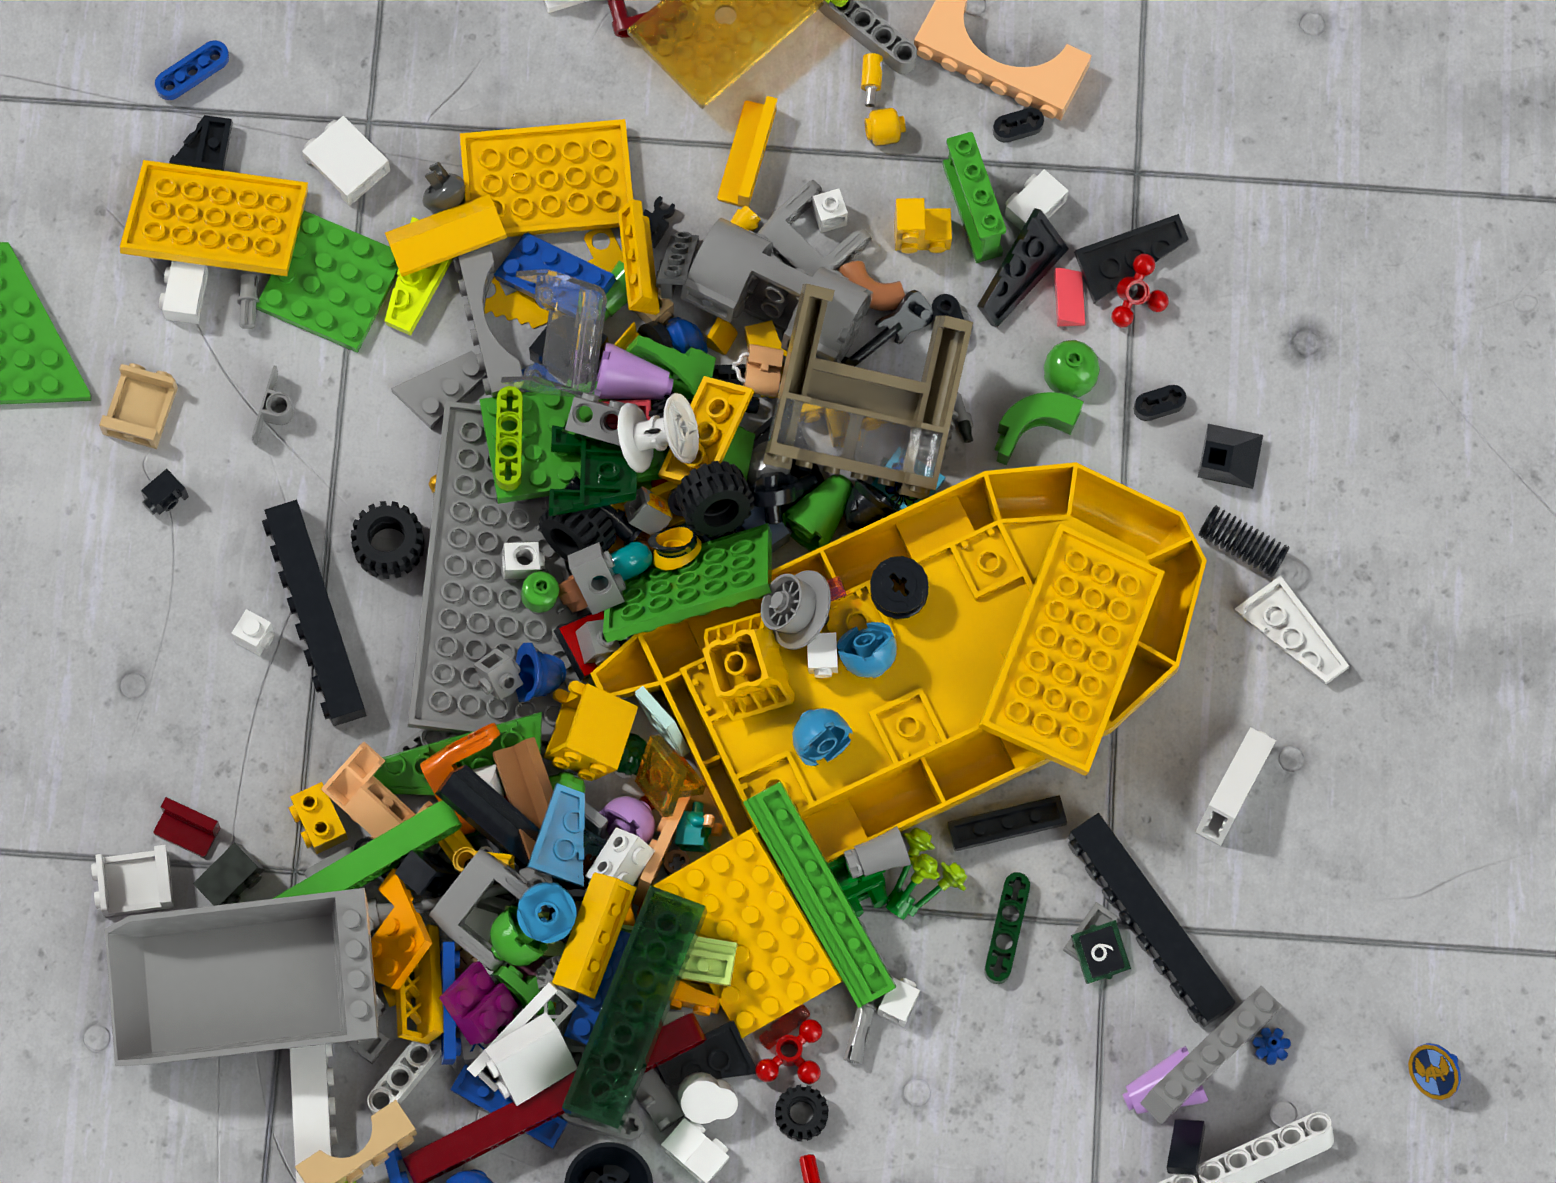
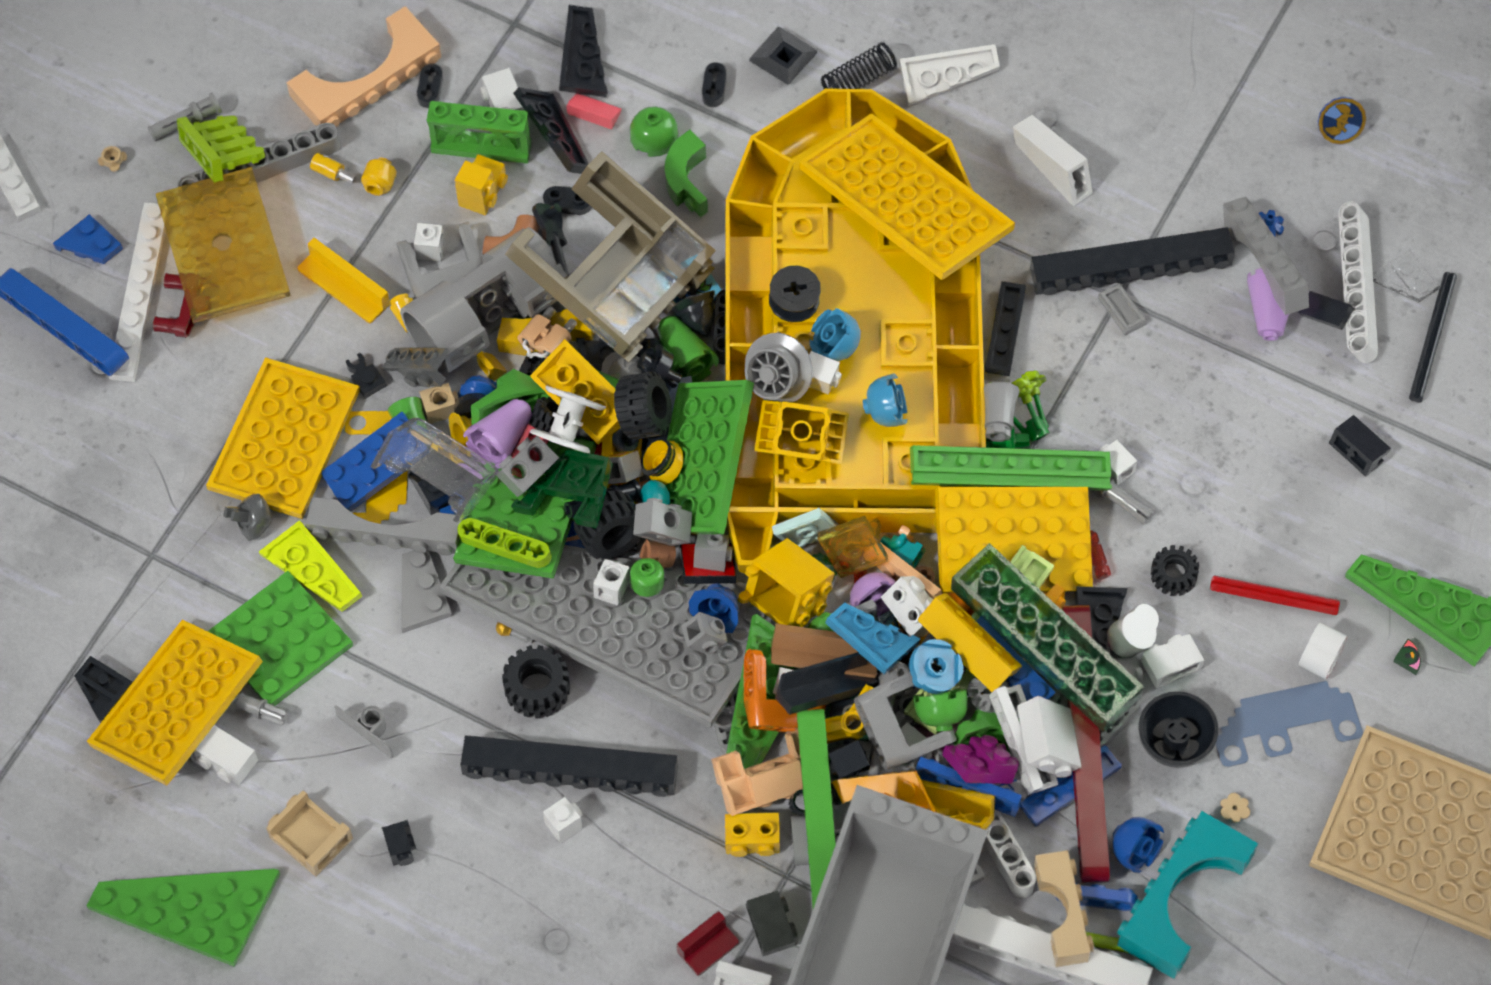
camera: 60 degrees left, 10 degrees down
(197, 60) = (25, 662): blue plate -> none
(346, 159) = (177, 580): white panel -> none
(445, 235) = (292, 527): yellow slope -> none
(638, 259) = (397, 386): yellow panel -> none
(808, 1071) = (1143, 551): red piece -> none
(1008, 928) = (1093, 360): dark green beam -> none
(1100, 952) = (1141, 306): piece -> none
(1156, 300) = (617, 58): red piece -> none

